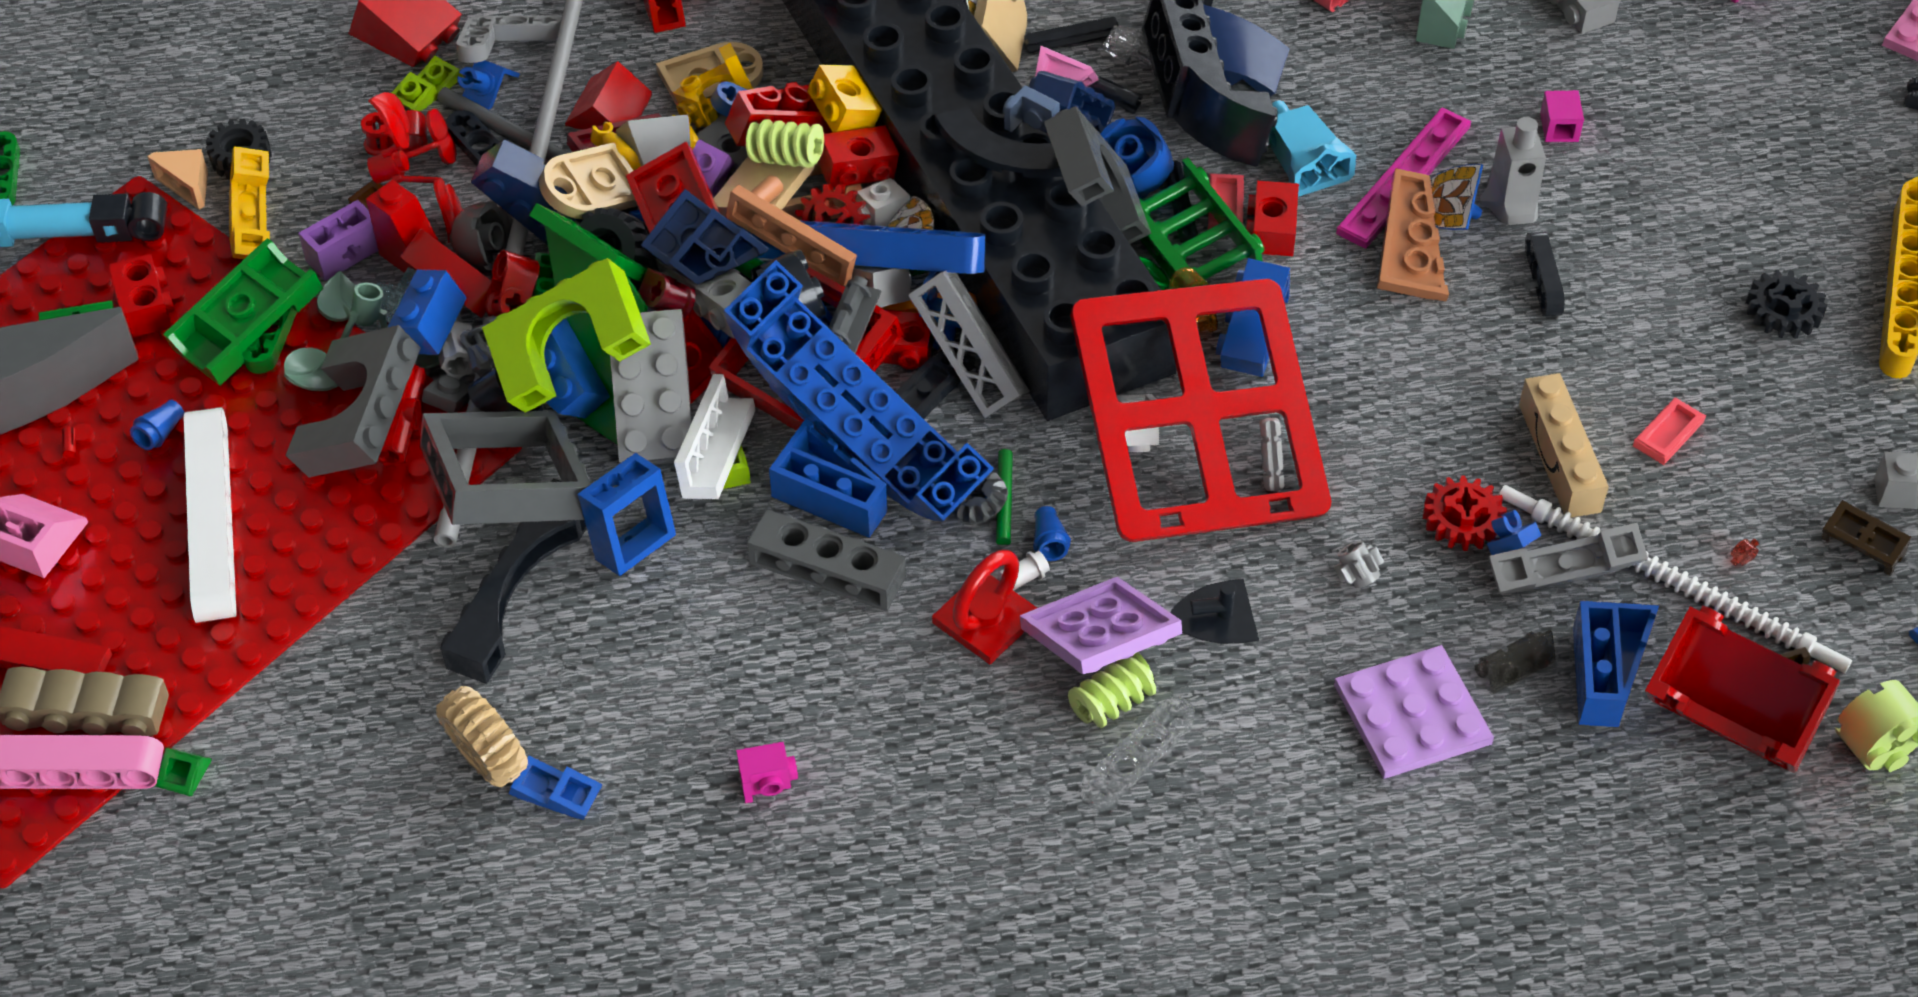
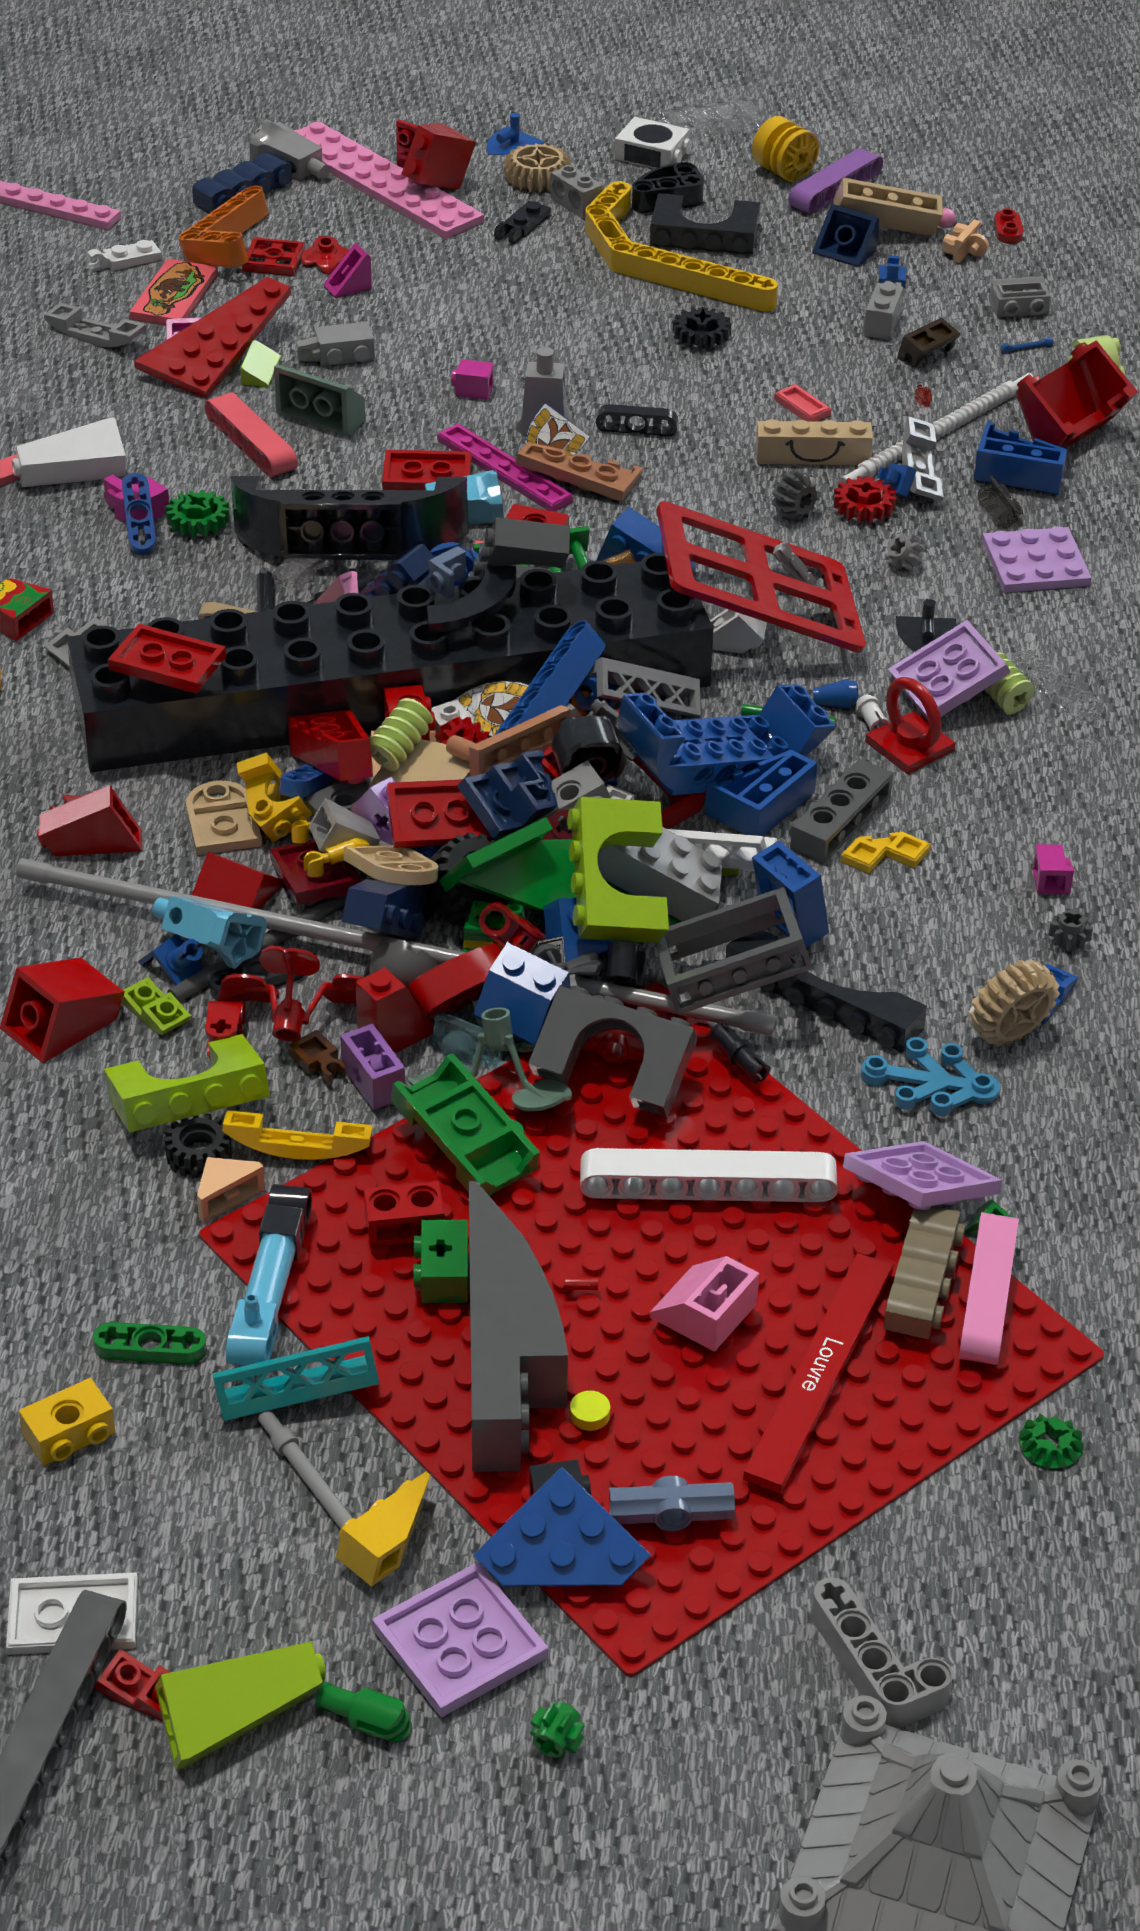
camera: 80 degrees left, 10 degrees down
(155, 426) = (587, 1211): blue cone -> none
(211, 683) = (922, 1174): none -> lavender plate
(298, 145) = (148, 1101): none -> lime arch
(396, 514) = (739, 1052): none -> black pin
(396, 697) = (970, 1086): none -> dark azure plant
(482, 31) = (108, 950): light grey beam -> none
(502, 90) = (229, 933): none -> medium azure piece
(656, 799) = (1070, 930): none -> dark grey gear
(789, 622) = (868, 852): none -> yellow tile
(843, 98) = (349, 700): yellow brick -> none
(1361, 110) = (418, 467): none -> red plate
(1429, 438) = (795, 495): none -> dark grey gear

